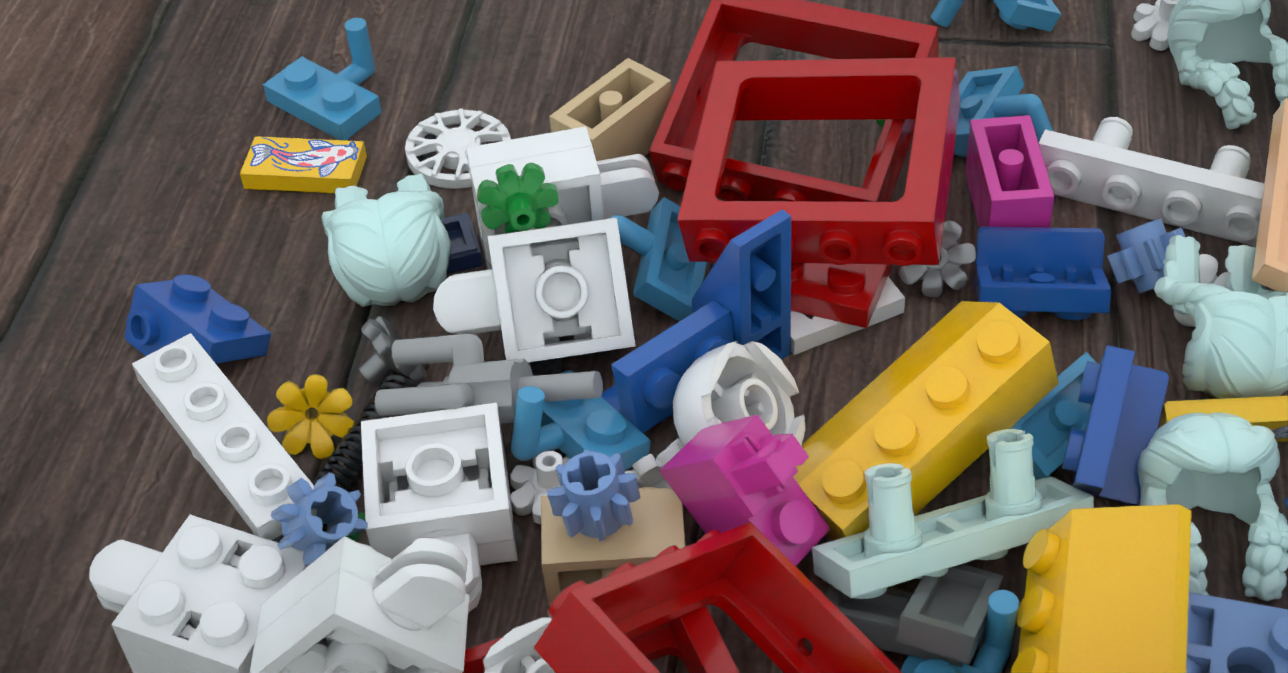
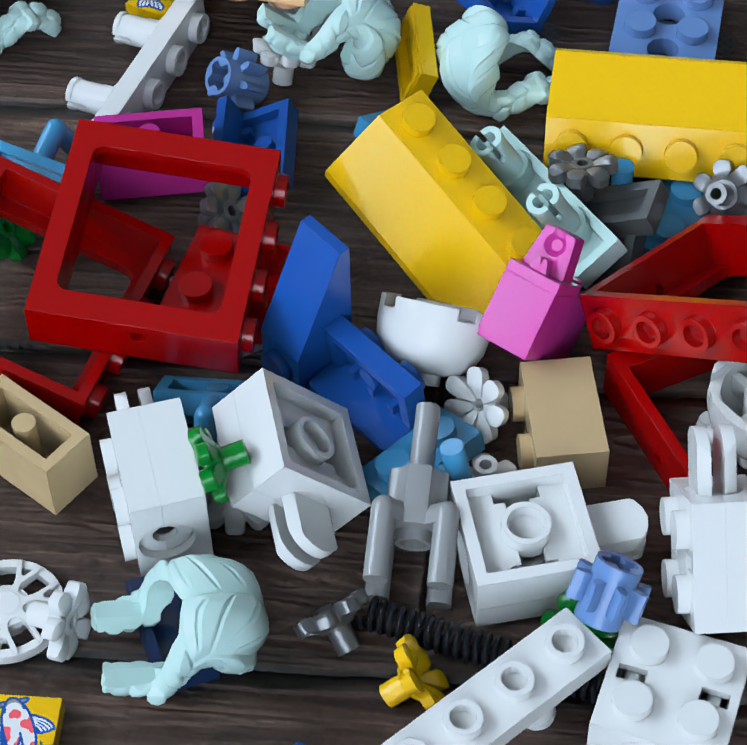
camera: 95 degrees left, 5 degrees up
(420, 157) = (62, 620): none -> white plant
(594, 494) = (559, 396): medium blue gear -> none
(990, 554) = (581, 170): none -> flat silver plant
(1118, 427) = (457, 99): blue bracket -> none

